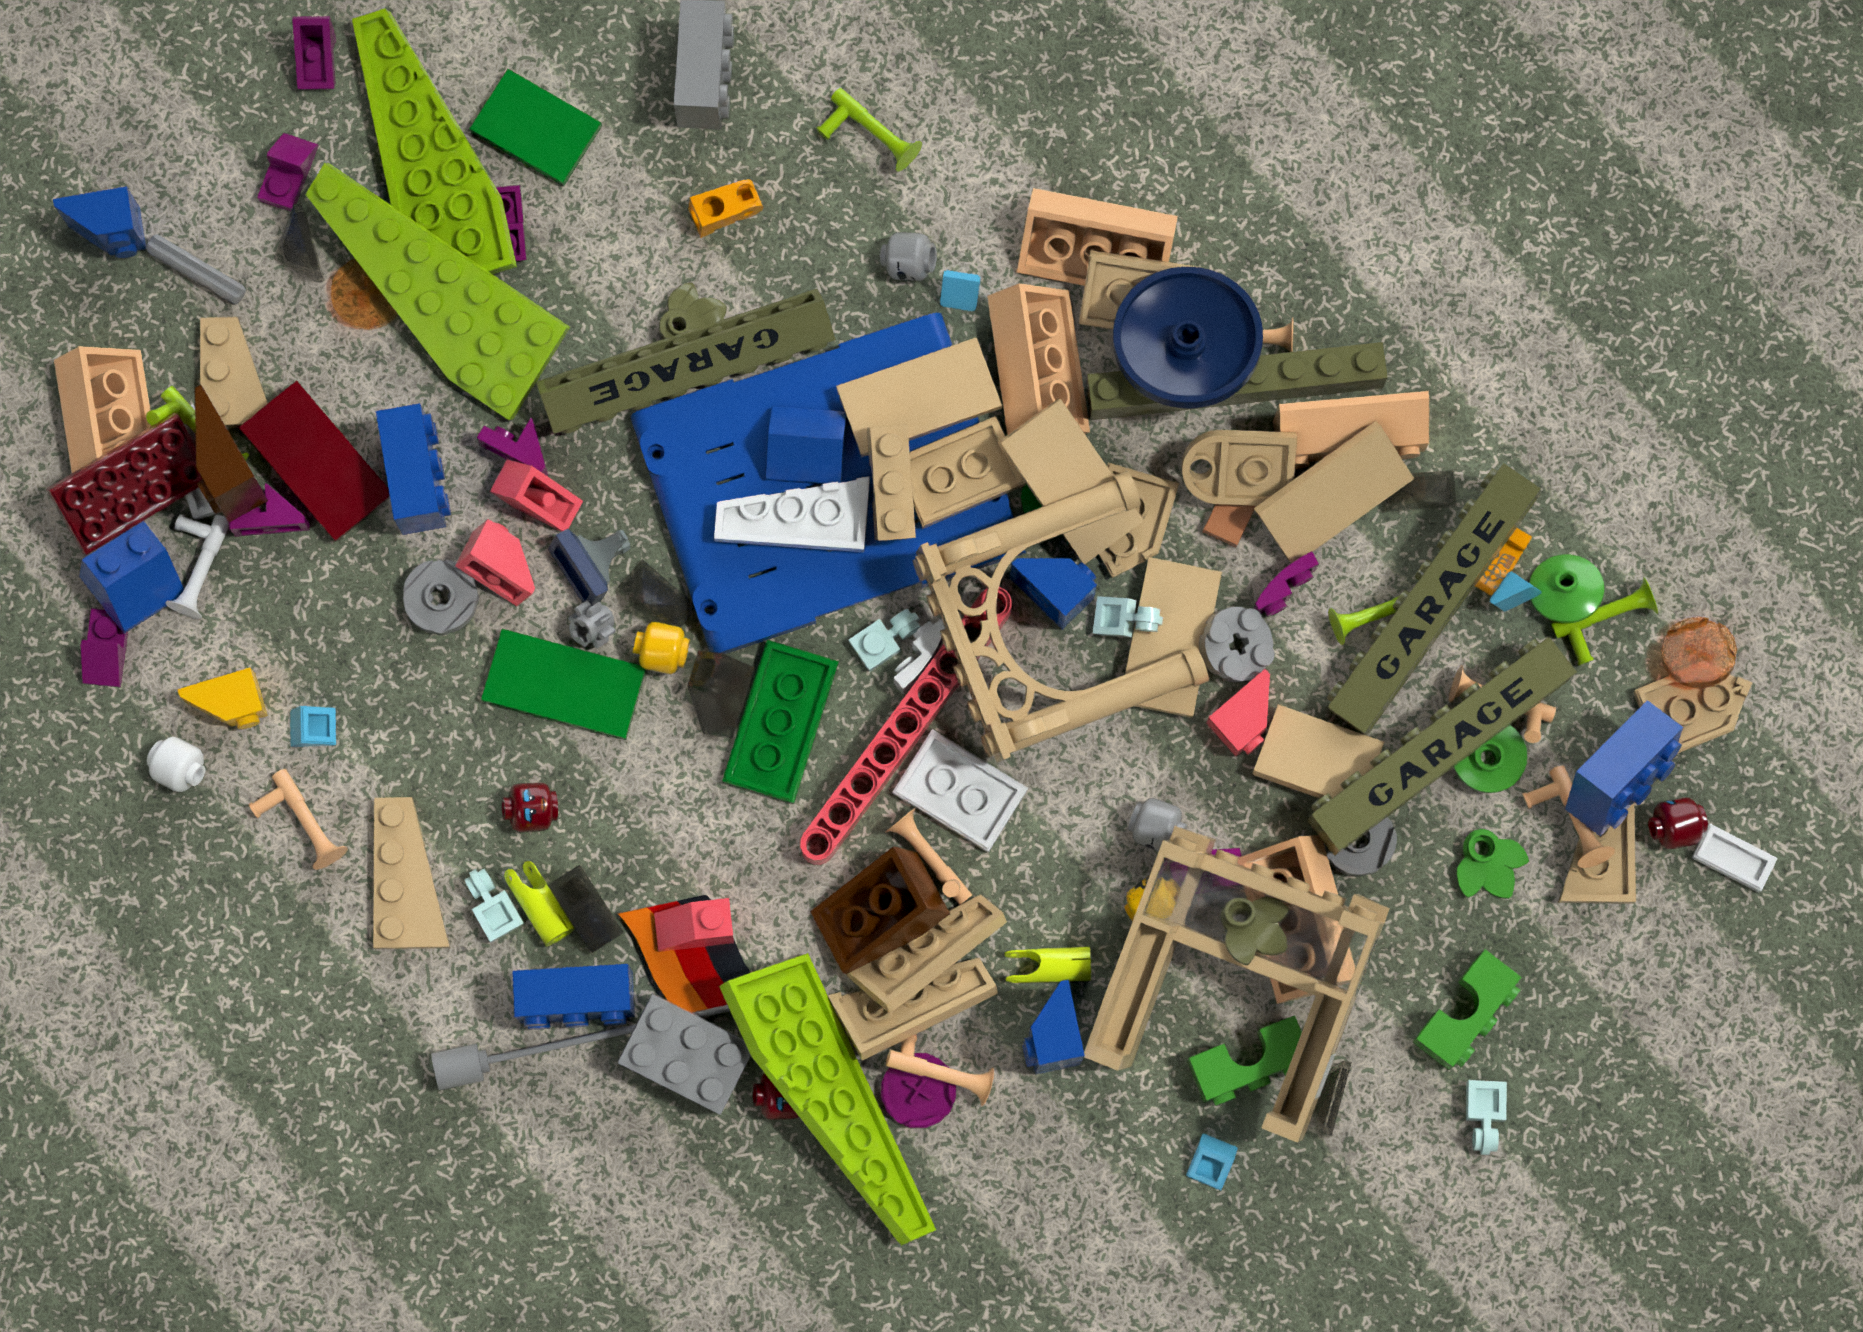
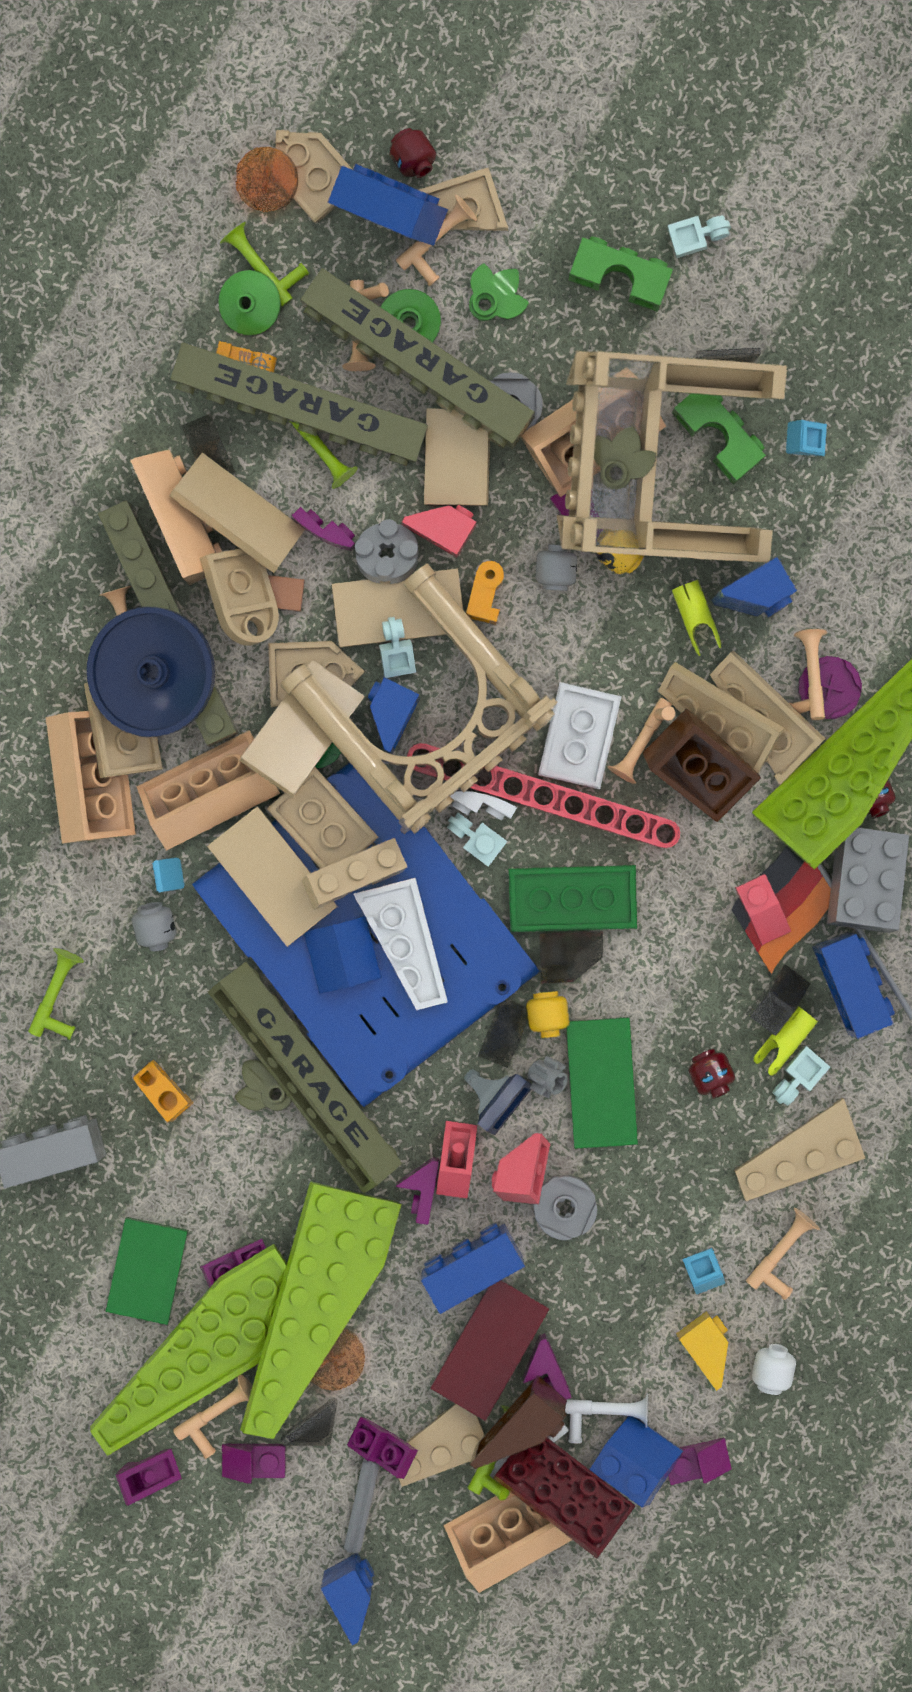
camera: 110 degrees left, 10 degrees up
(251, 311) = (382, 1447): none -> magenta slope
(350, 119) = (192, 1426): none -> light nougat piece
(1157, 736) = (486, 582): none -> light orange leg
(1513, 592) = (267, 343): medium azure slope -> none
(1734, 858) = (424, 100): white tile -> none

